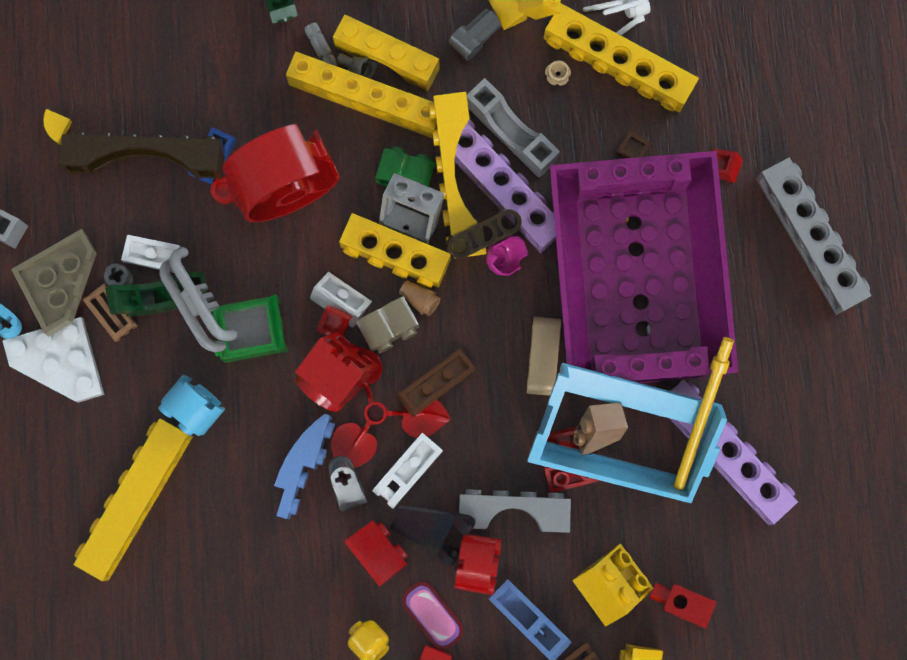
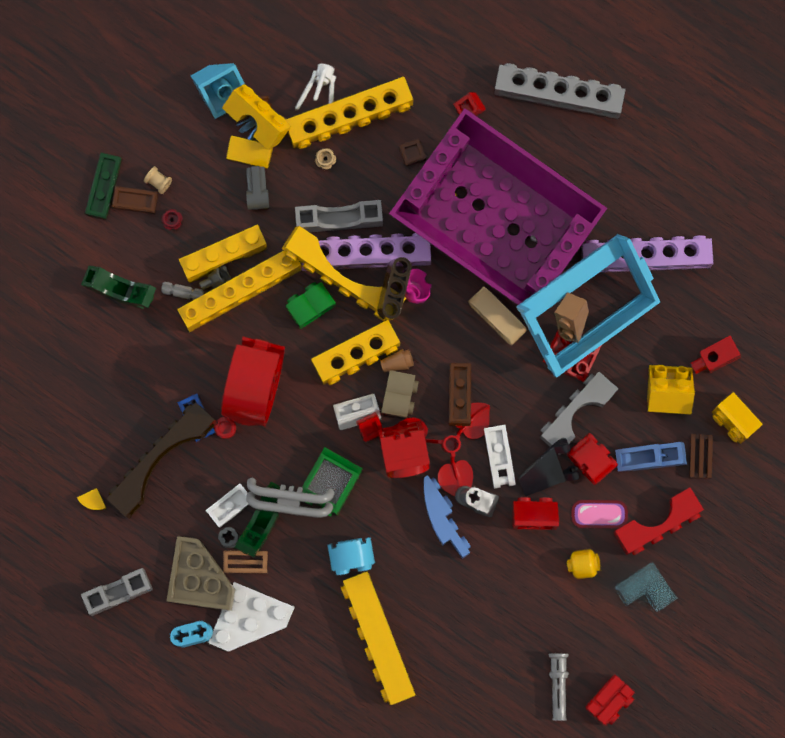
camera: 50 degrees left, 0 degrees up
(424, 200) = (334, 326): light grey window -> none
(719, 367) = (596, 217): yellow bar -> none

